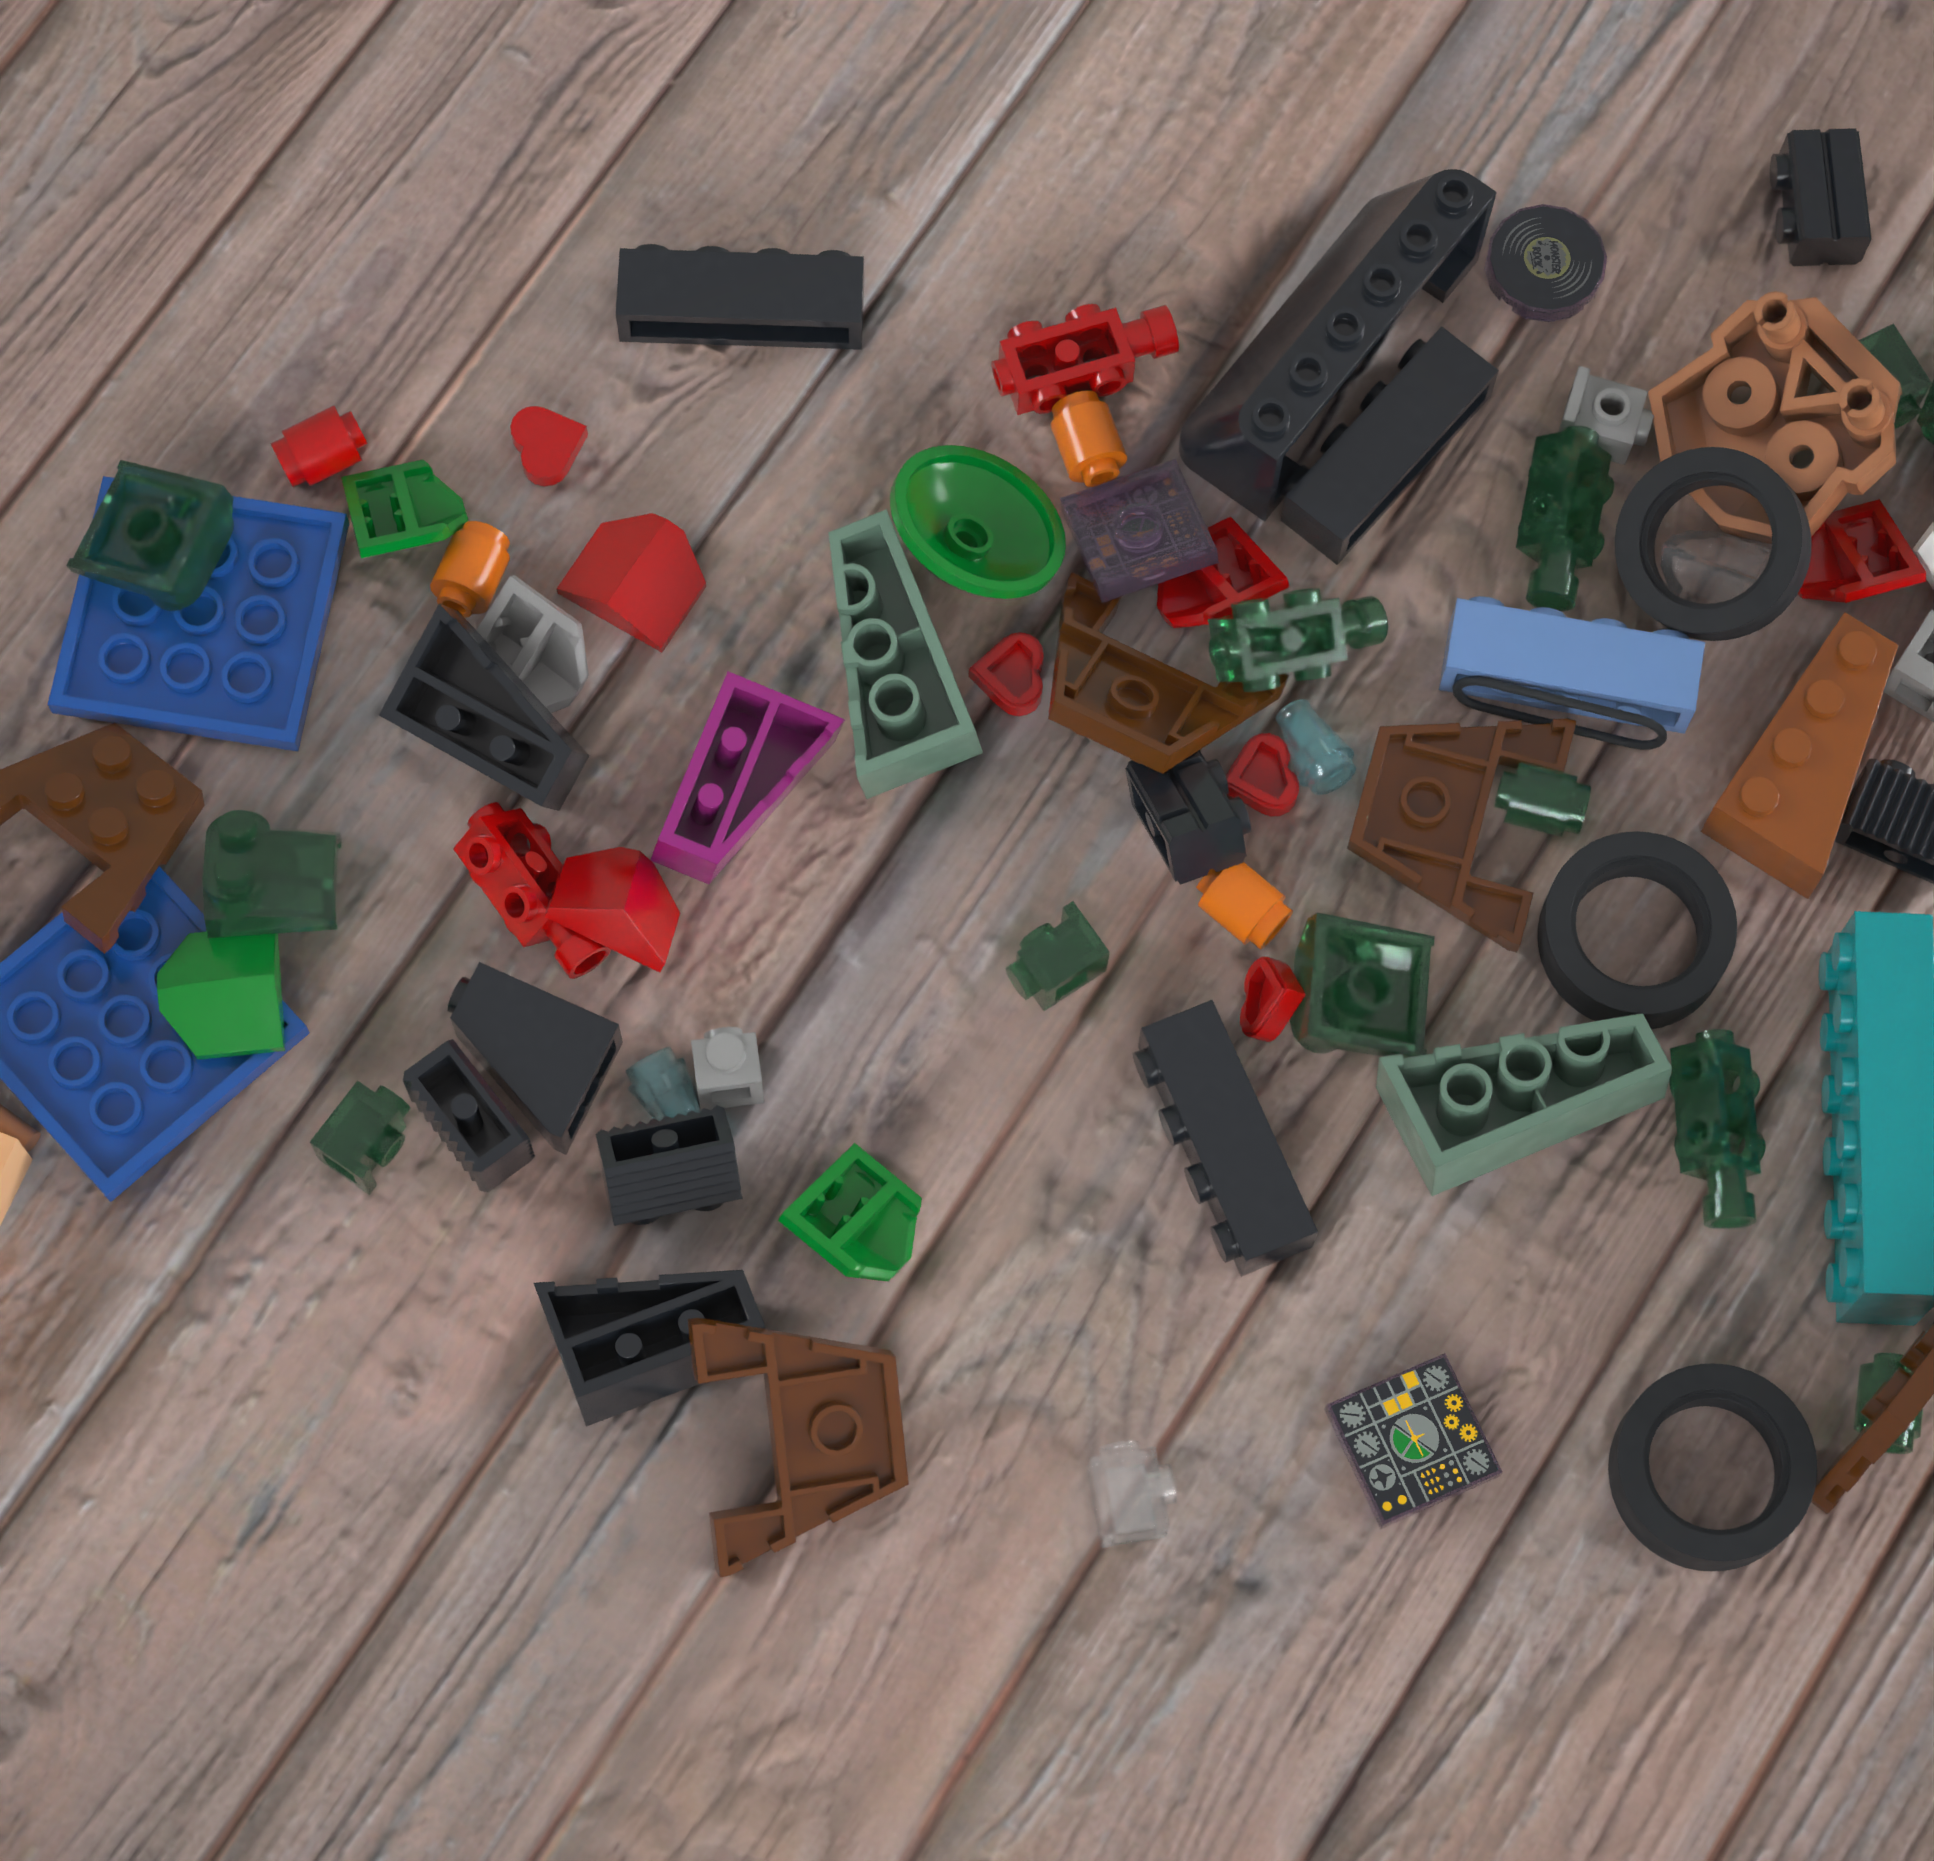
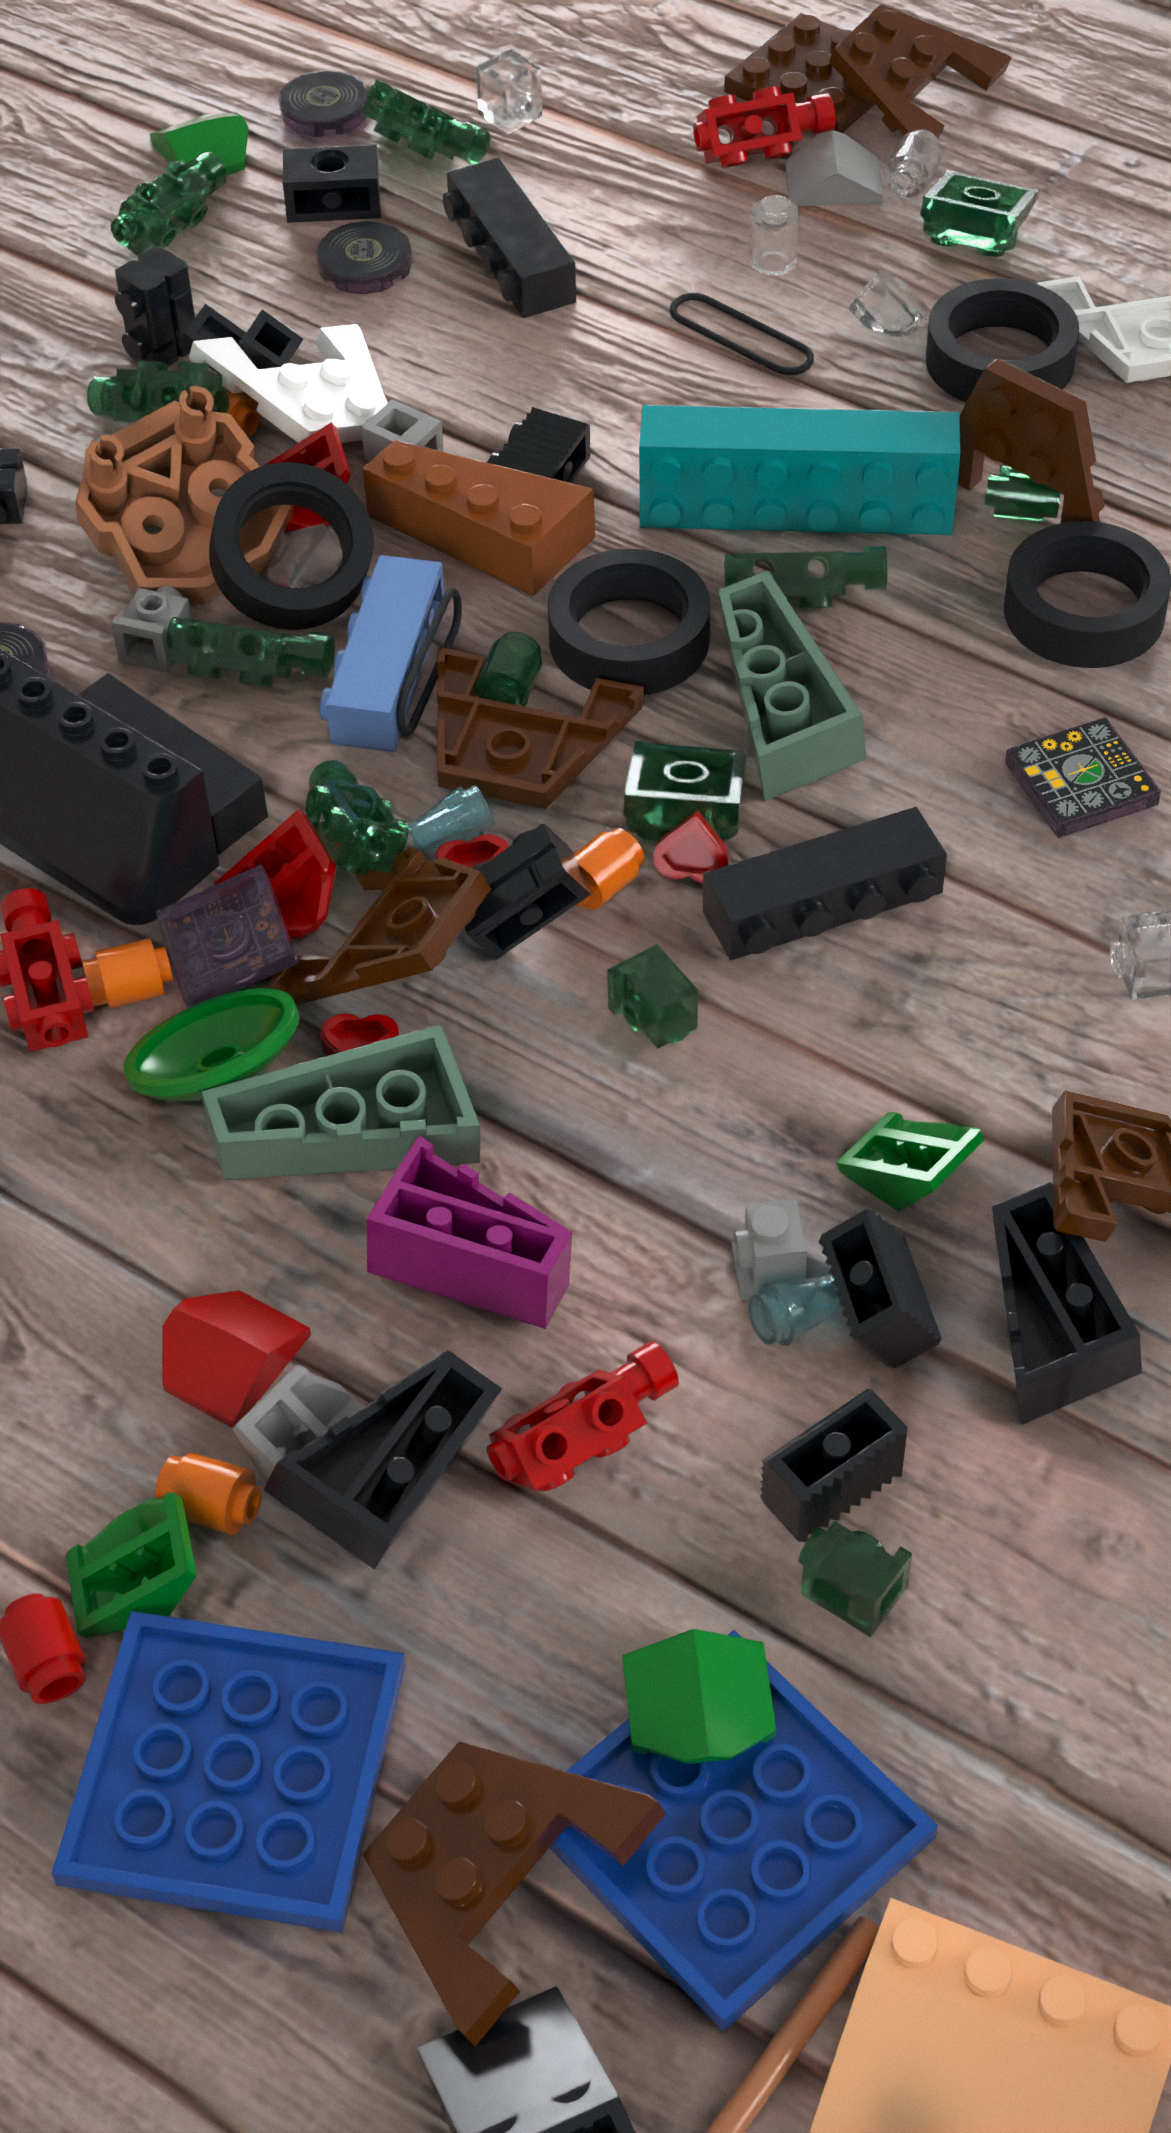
camera: 85 degrees left, 20 degrees down
(157, 535) = (146, 1786): clear green slope -> none
(268, 877) = (565, 1666): clear green slope -> none
(535, 1048) = (746, 1411): black slope -> none
(546, 443) = (63, 1434): red tile -> none
(617, 902) = (600, 1341): red slope -> none

